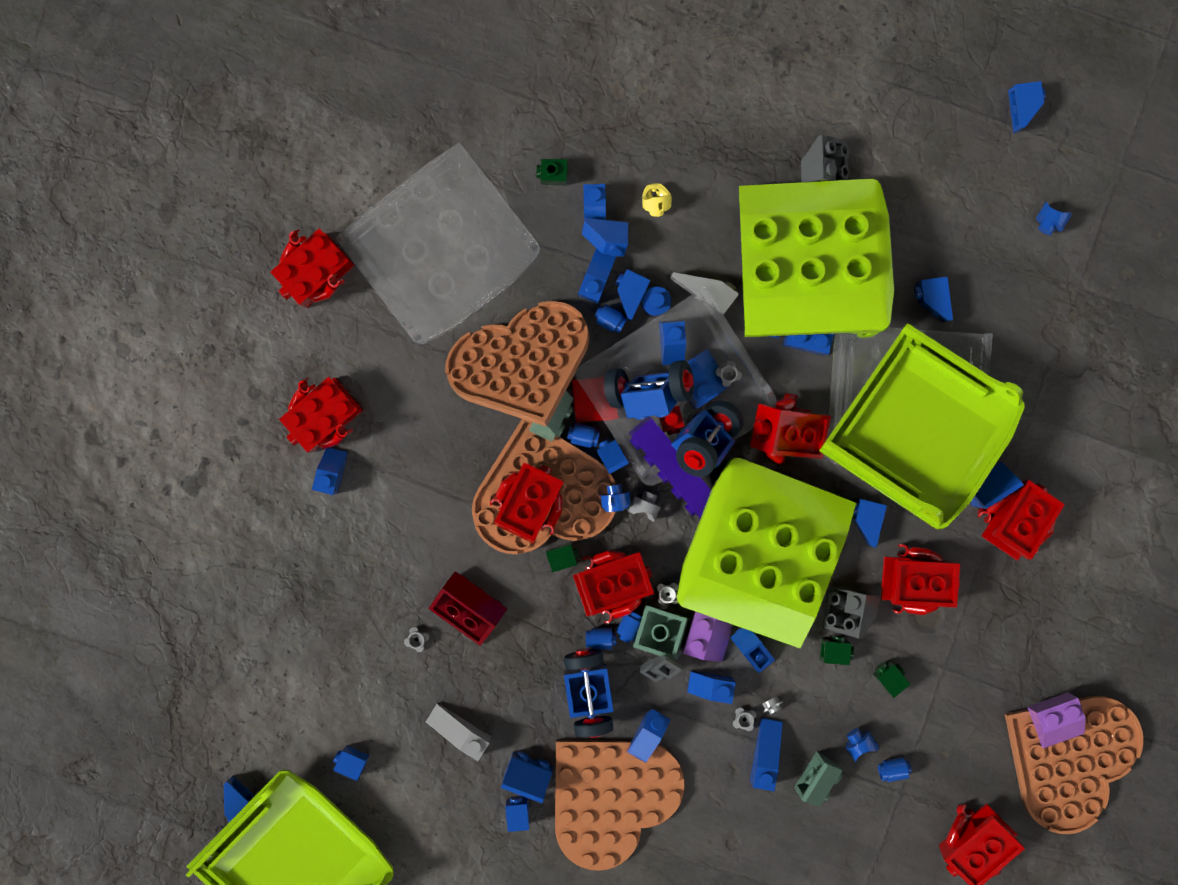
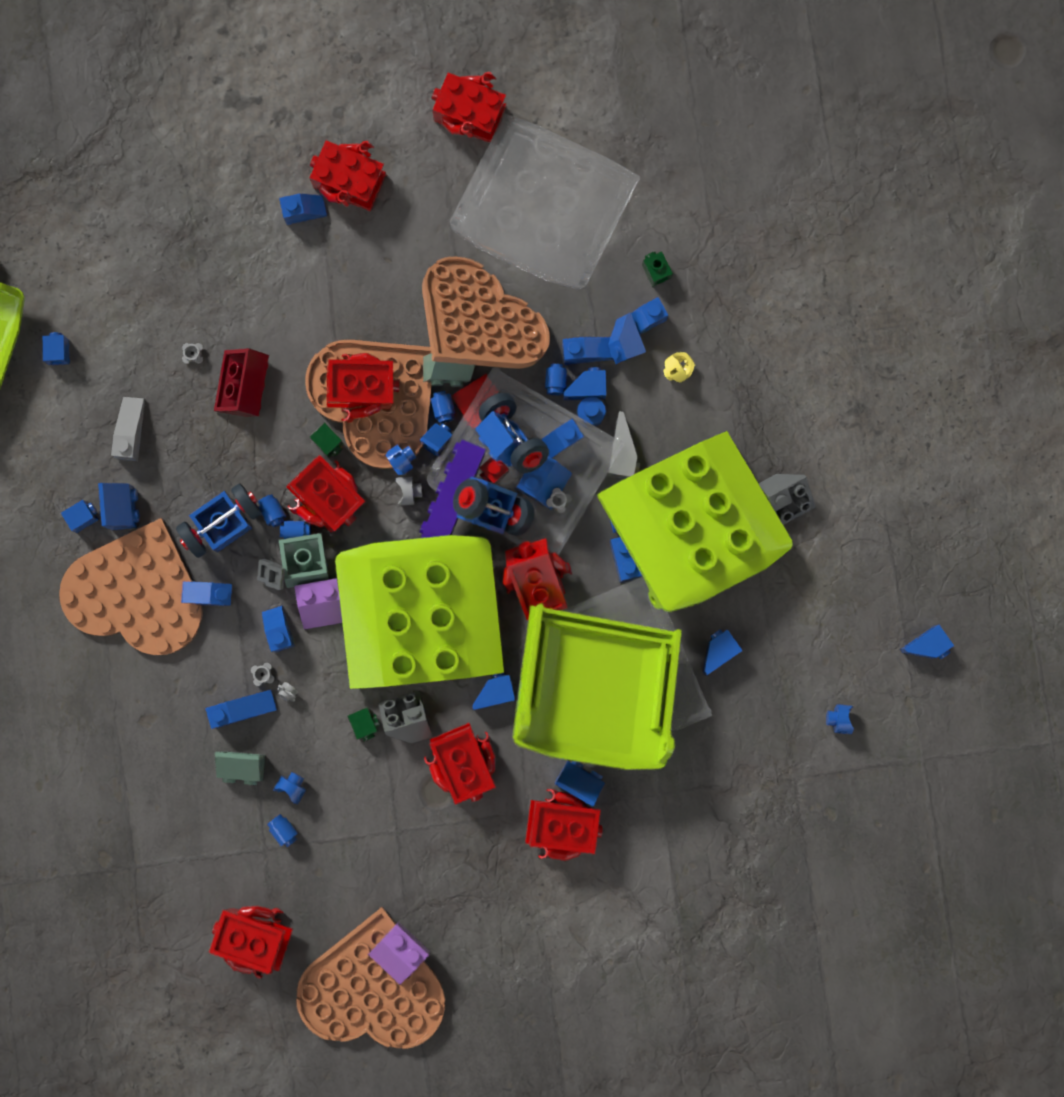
camera: 65 degrees right, 5 degrees down
(663, 589) = (341, 544): white plate -> none
(752, 649) = (328, 649): blue slope -> none
(891, 678) = (364, 785): dark green brick -> none

